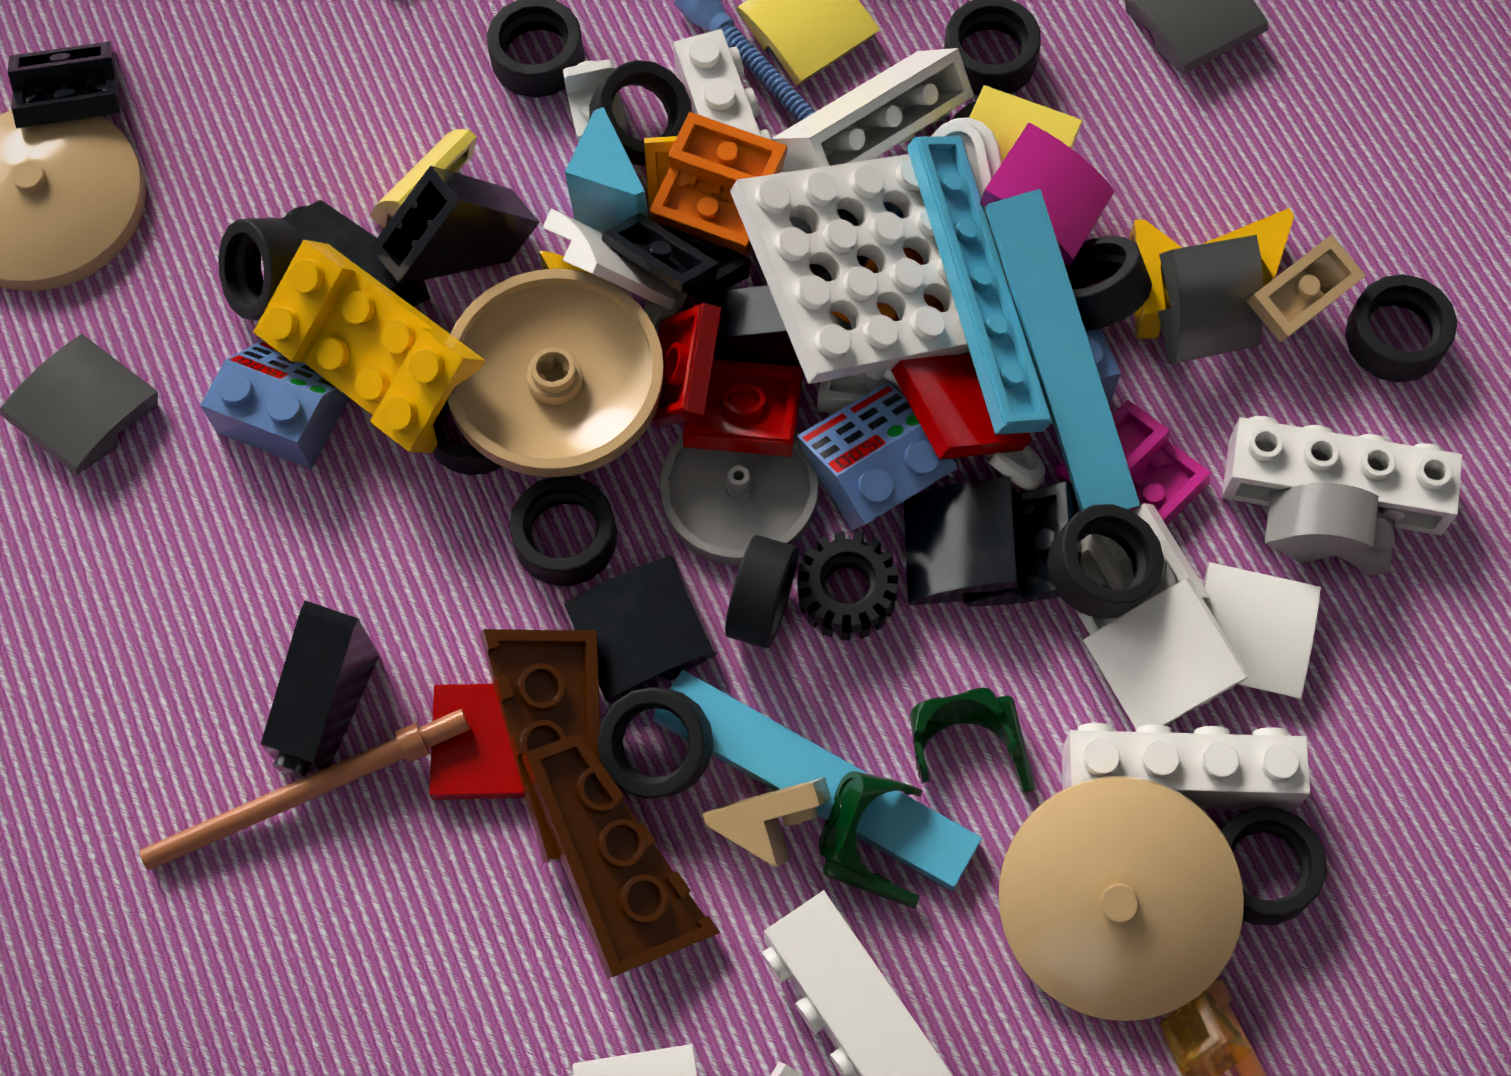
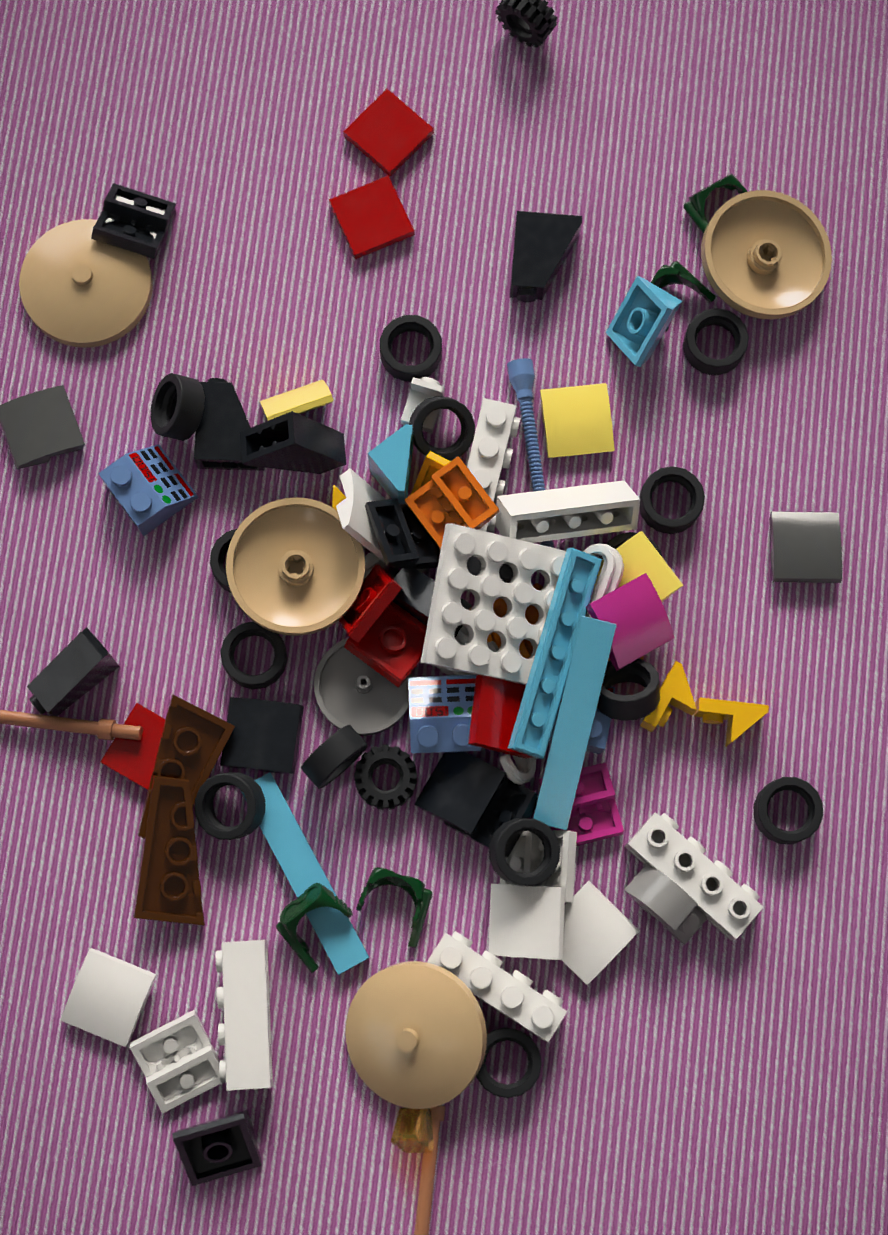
camera: 25 degrees right, 10 degrees up
(366, 343) = (205, 491): yellow piece -> none
(755, 820) = (260, 879): tan slope -> none
(1209, 298) = (687, 734): dark grey slope -> none
(1305, 288) = (744, 759): tan slope -> none

